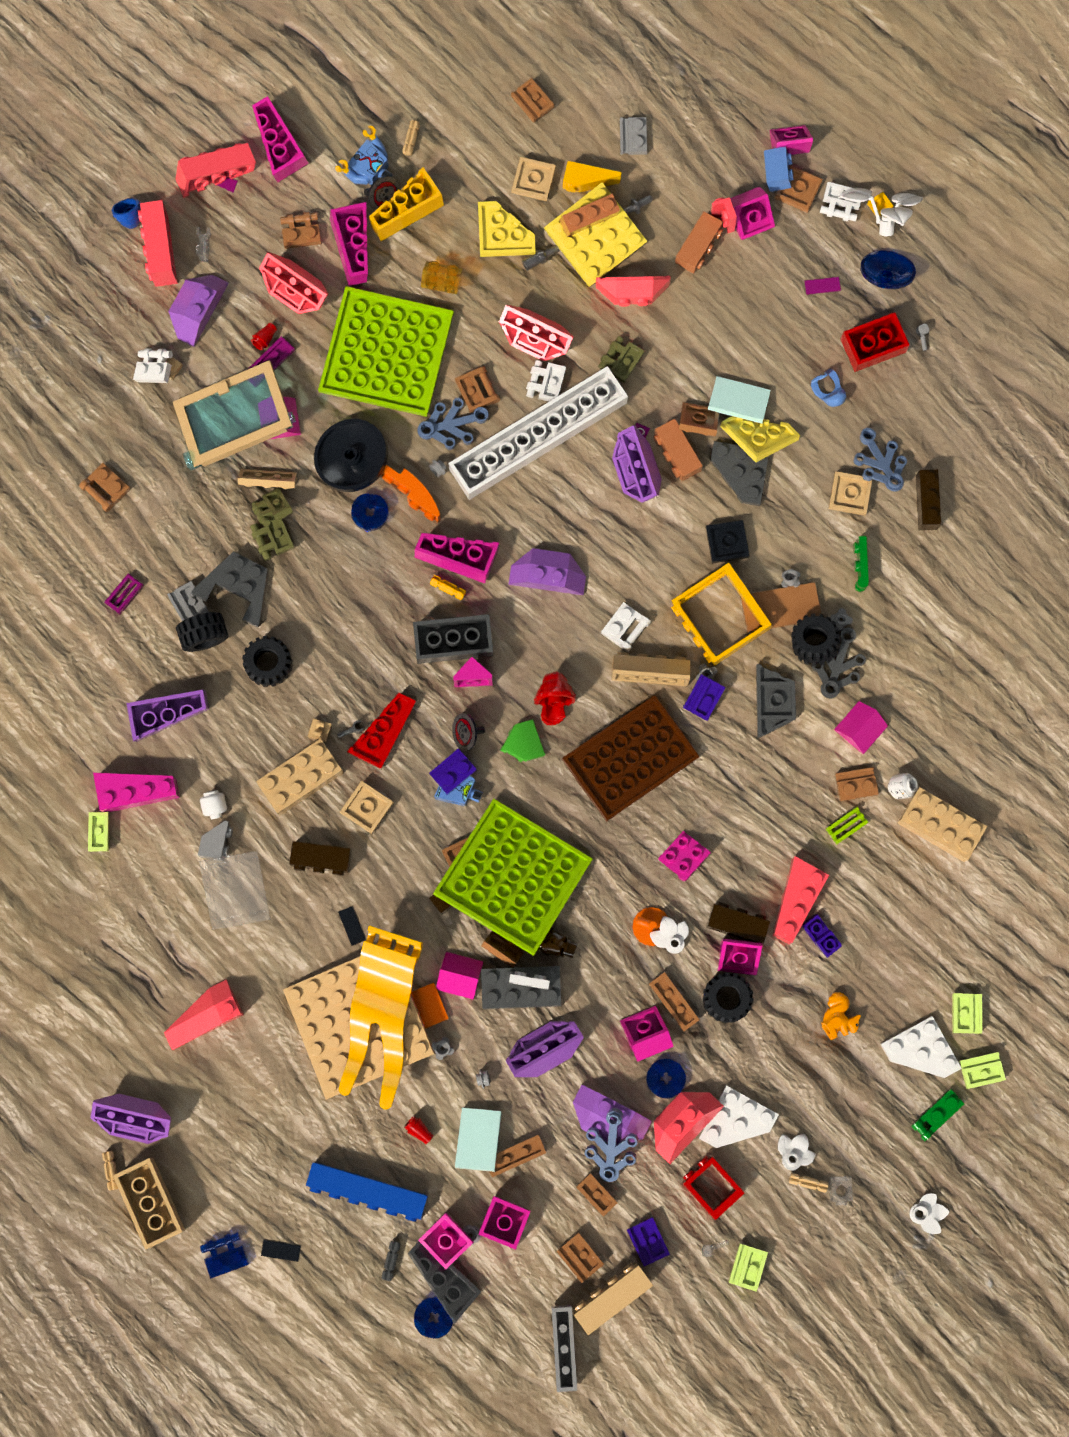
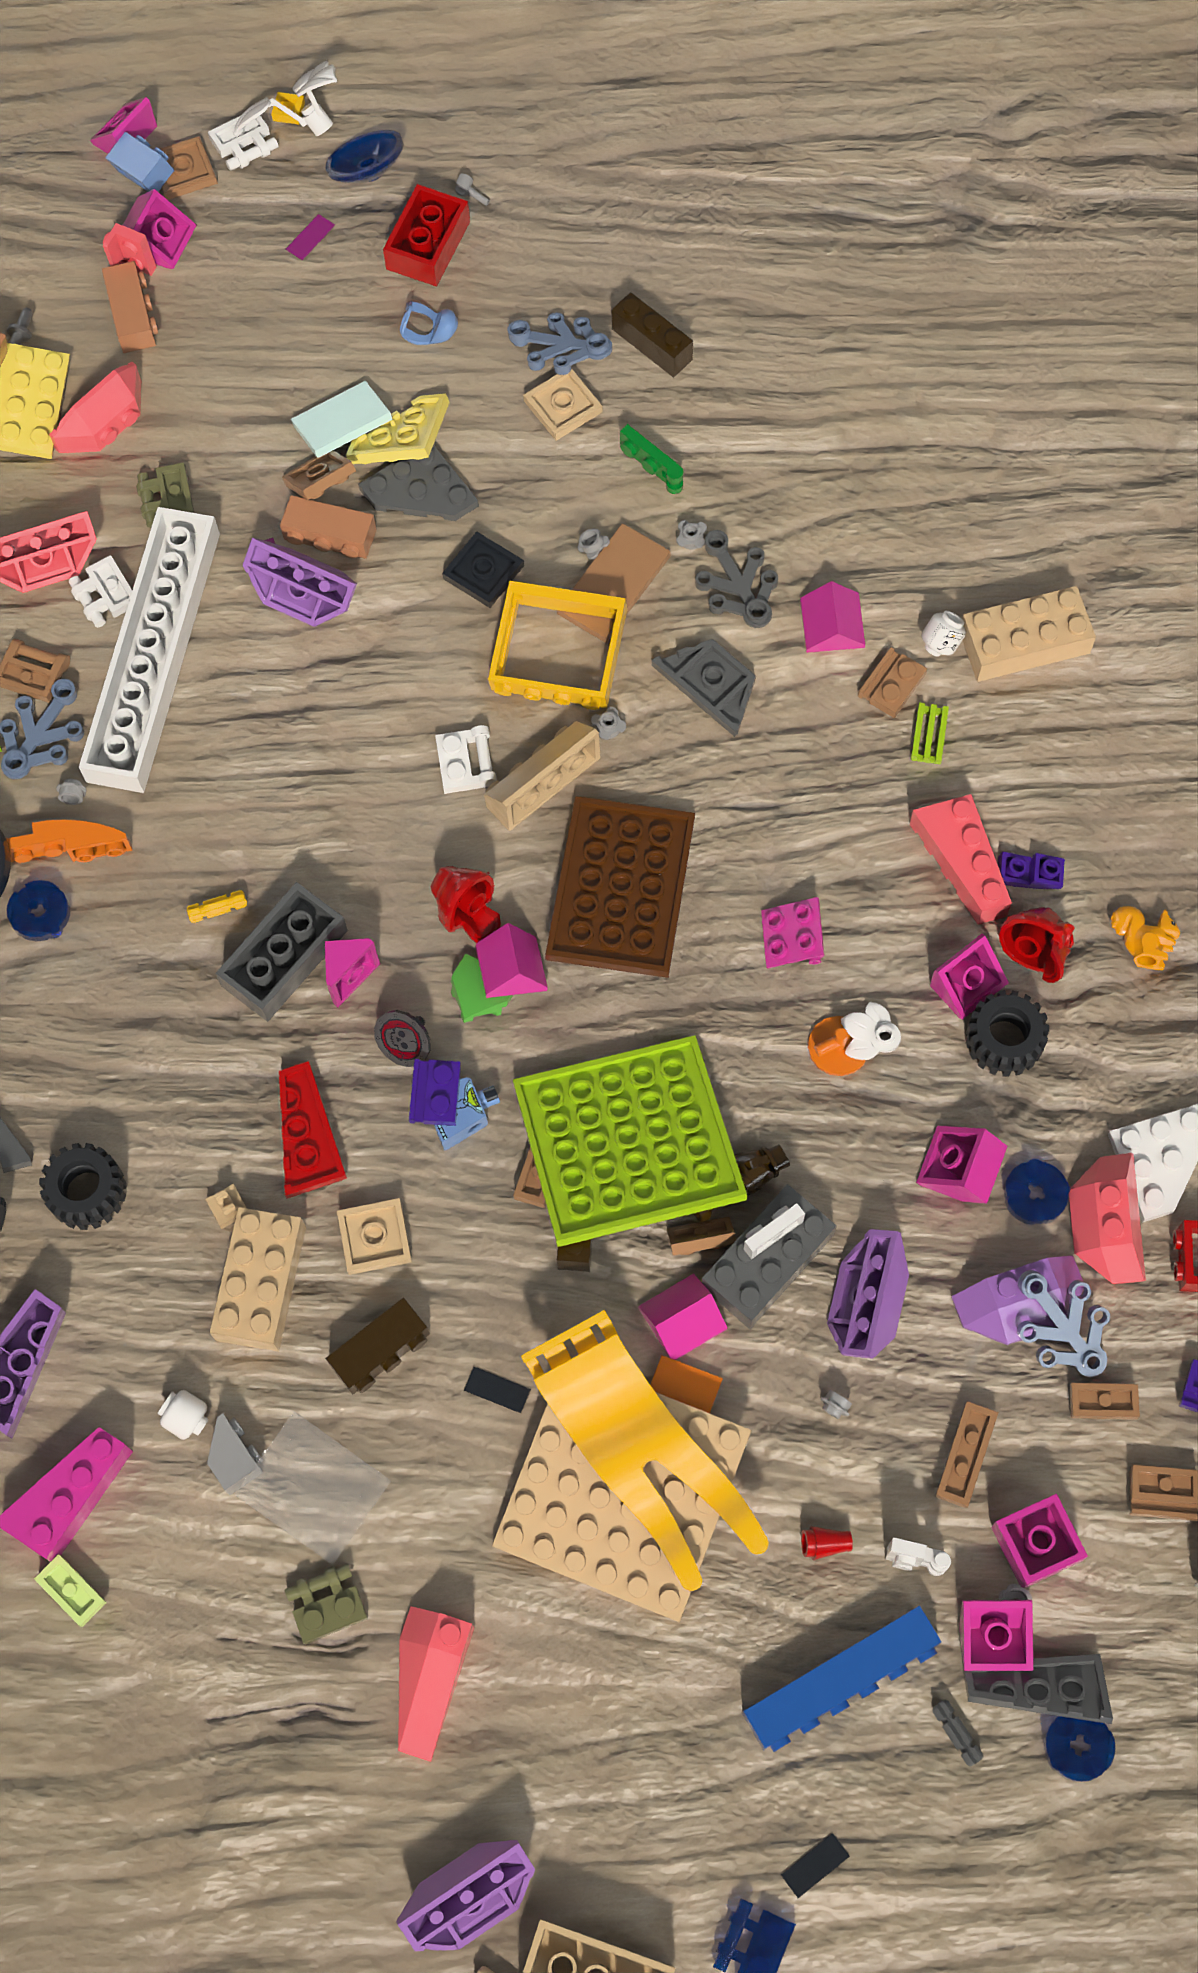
camera: 40 degrees left, 10 degrees down
(192, 949) = (330, 1613): none -> olive plate
(351, 730) = (267, 1165): dark grey hand -> none
(444, 1170) = (909, 1554): none -> white plate
(447, 1049) = (760, 1414): light grey plate -> none
(458, 555) = (192, 858): dark pink wedge -> none
(478, 1139) = (906, 1479): light aqua tile -> none
(546, 744) = (510, 963): none -> dark pink slope
(548, 572) = (315, 784): medium lavender wedge -> none
(674, 1002) = (953, 1099): medium nougat plate -> none
(704, 697) = (632, 747): dark purple plate -> none
(738, 923) = (928, 945): dark brown brick -> none
(788, 971) = (1038, 941): none -> red head
(811, 626) = (680, 556): black tyre -> none

